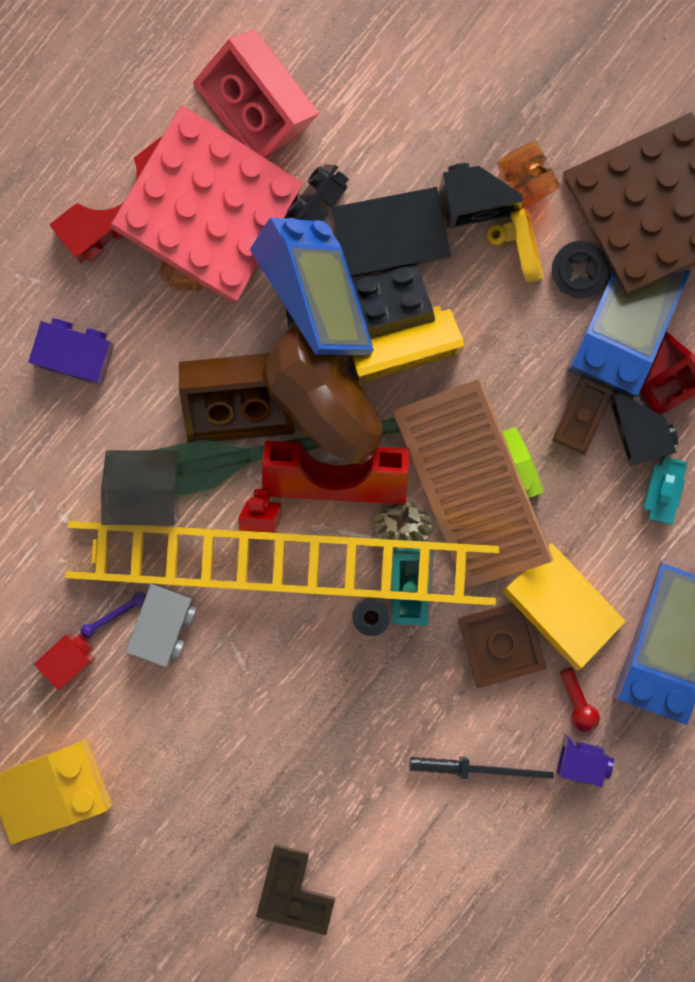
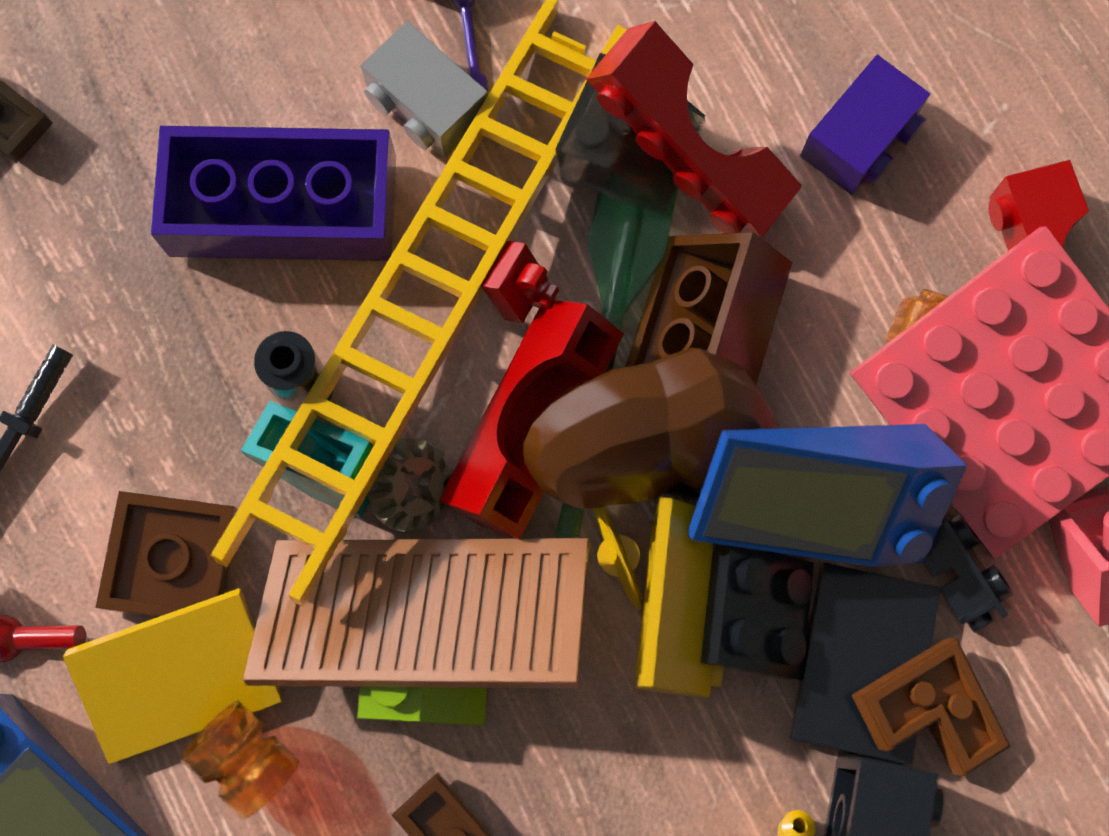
camera: 110 degrees right, 10 degrees down
(119, 481) = (647, 87): none -> red arch
(266, 681) = (274, 193): none -> dark purple brick
(392, 391) = (618, 556): none -> yellow piece
(393, 189) = (937, 693): none -> dark orange tile
(594, 541) = (240, 760): none -> clear orange wheel

